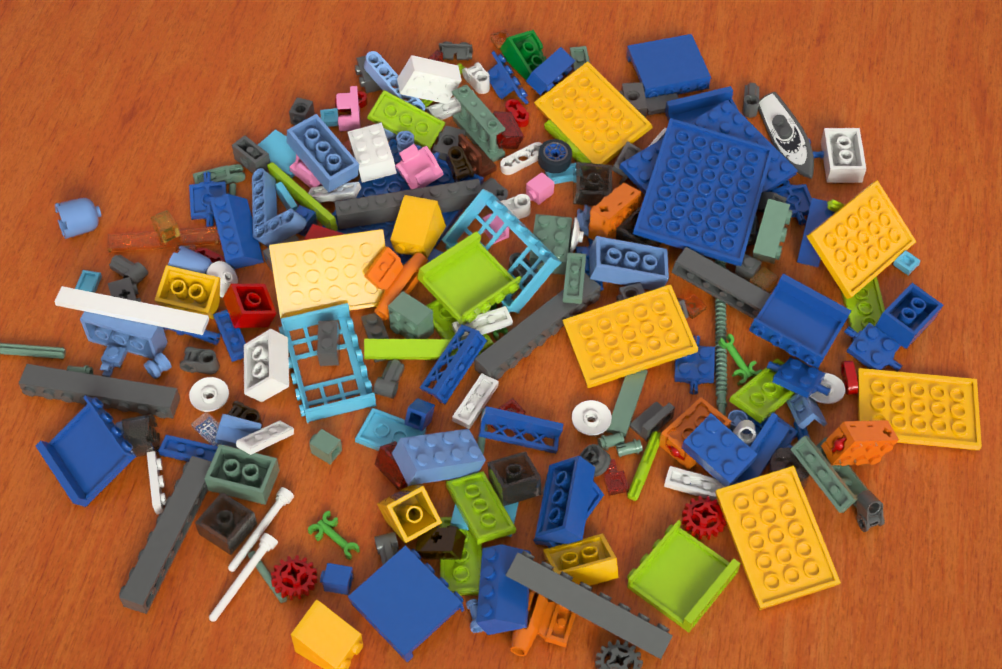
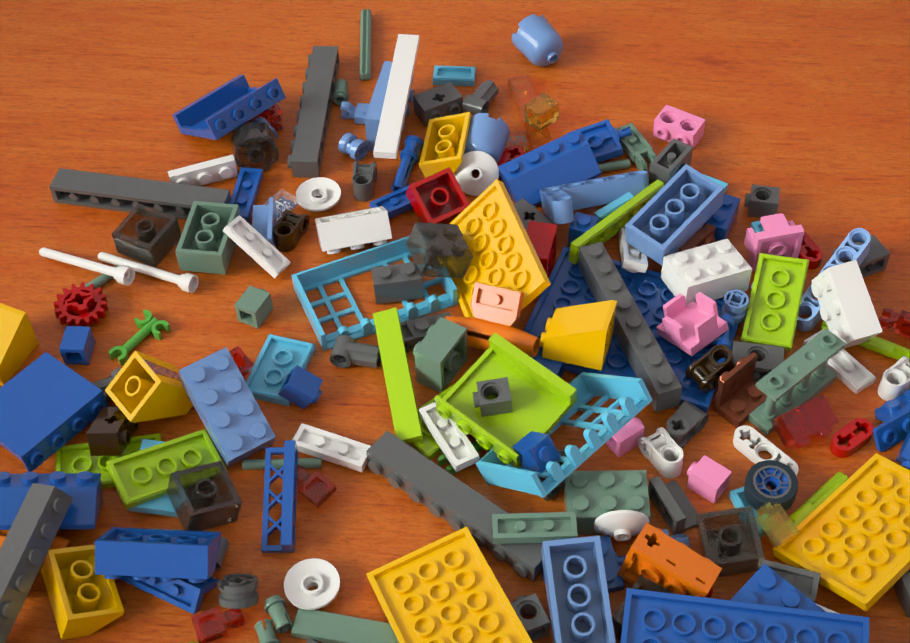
camera: 85 degrees right, 5 degrees down
(207, 146) = (678, 125): none -> bright pink brick
(314, 303) = (439, 250): none -> clear smoke brick
(456, 365) = (373, 410): blue fence -> none
(469, 276) = (497, 387): none -> dark grey brick
(517, 265) = (536, 451): none -> blue brick
(562, 209) = (672, 505): none -> dark grey panel
(588, 154) = (775, 523): none -> clear yellow brick

